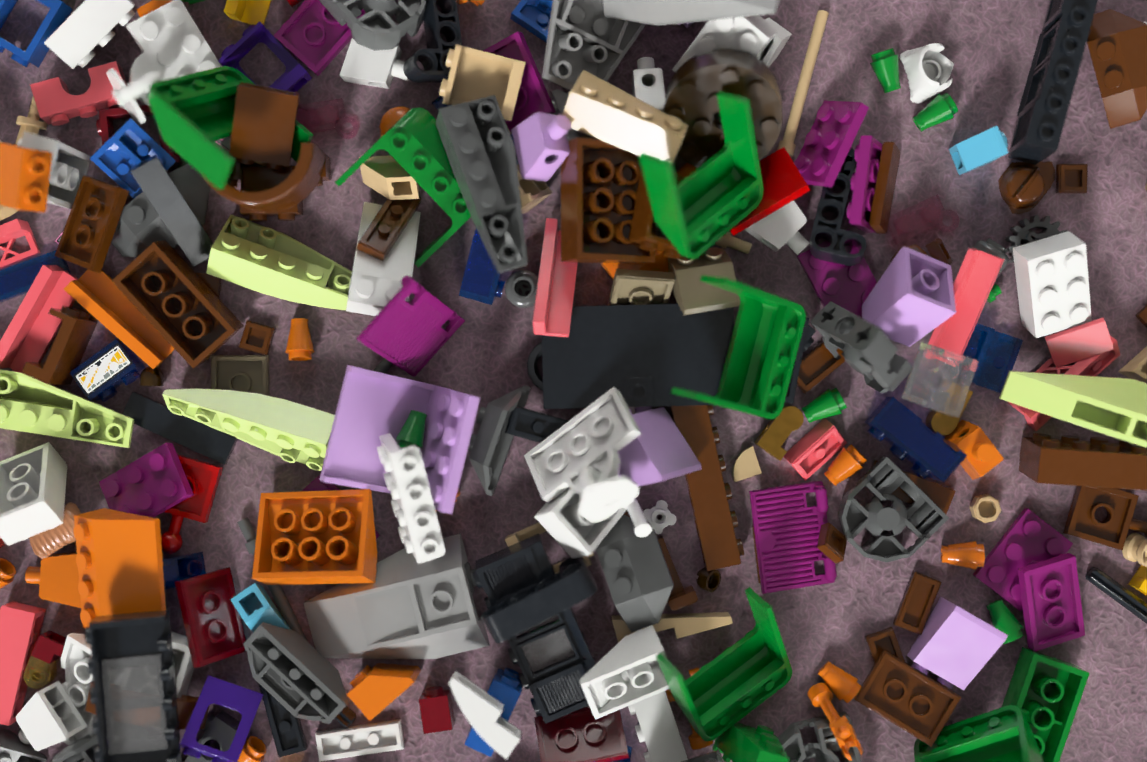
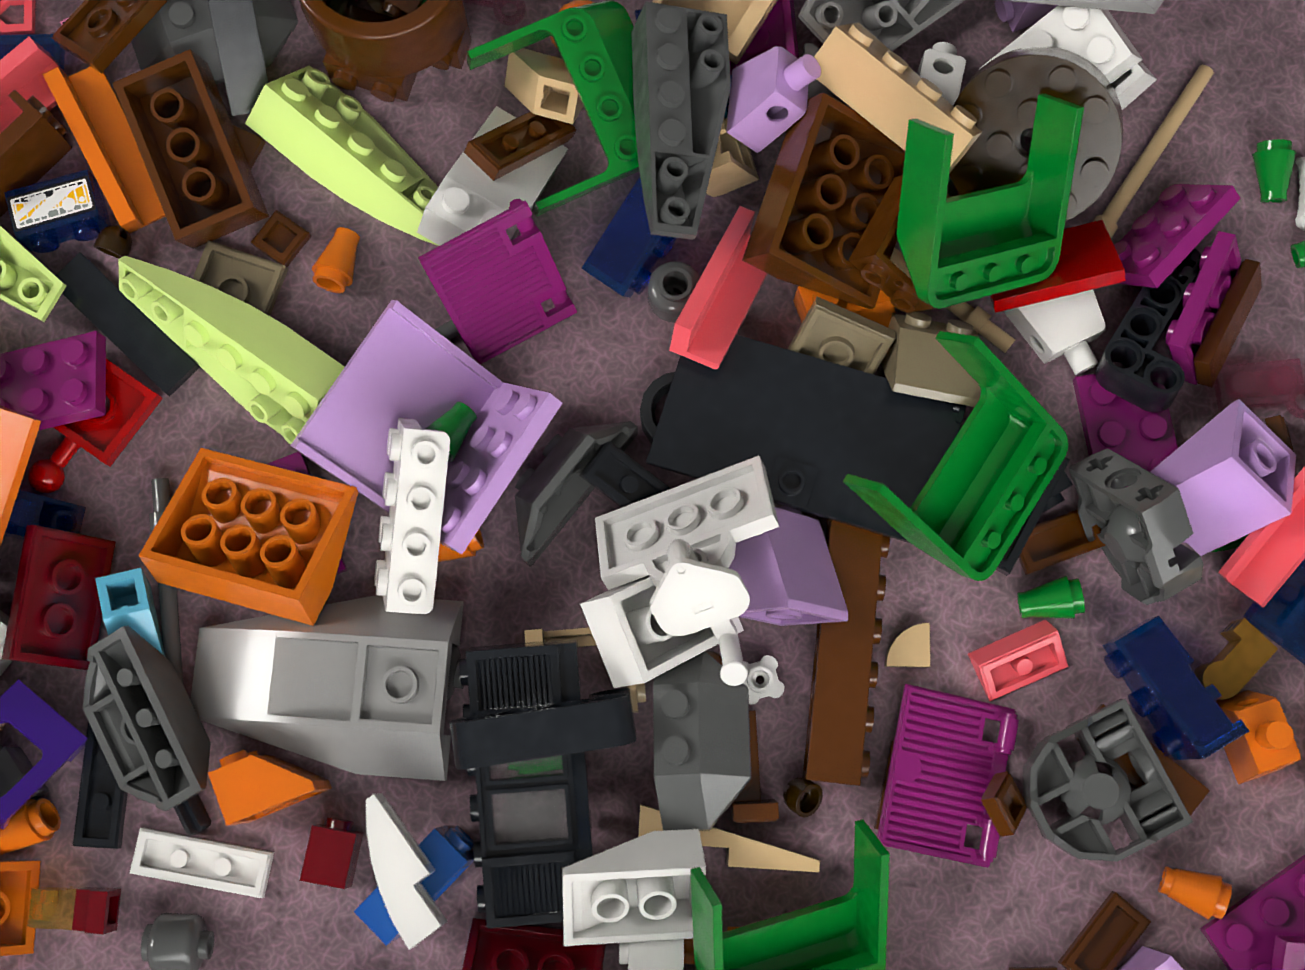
camera: 20 degrees right, 10 degrees down
(778, 431) = (984, 604): pearl gold leg -> none
(845, 465) = (1057, 695): orange cone -> none
(939, 380) = (1237, 608): clear slope -> none
(985, 508) = (1247, 832): tan tile -> none

